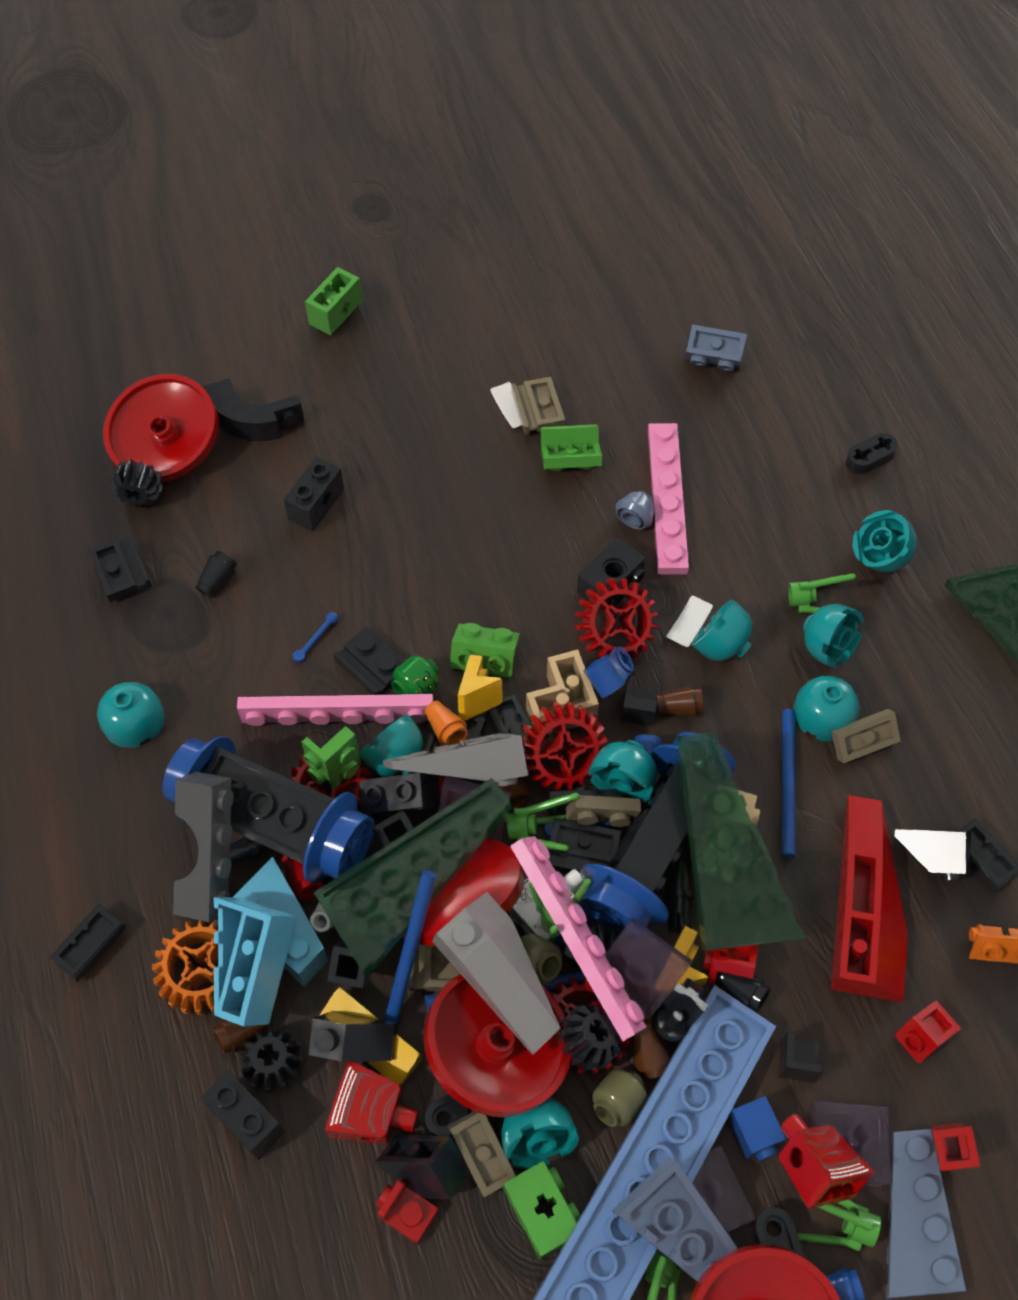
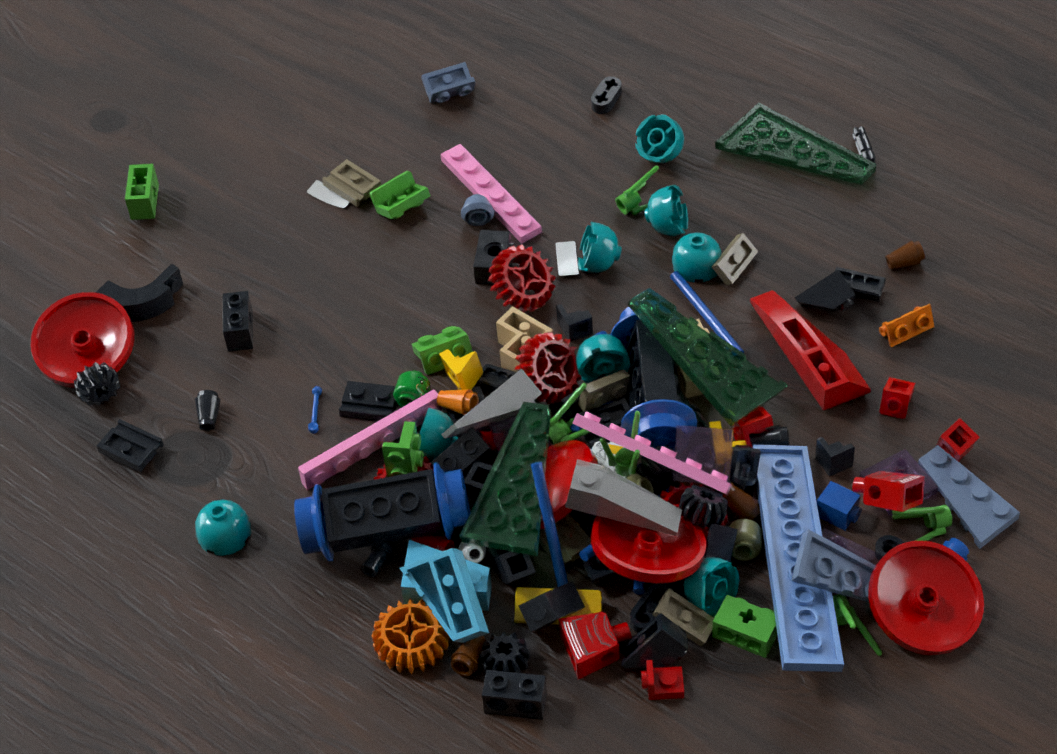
camera: 30 degrees left, 10 degrees down
(87, 942) = (318, 672): black plate -> none
(205, 806) = (346, 522): dark grey arch -> none
(582, 1090) = (720, 541): none -> black panel
(610, 671) = (544, 309): blue piece -> none
(683, 701) = (603, 304): reddish brown cone -> none

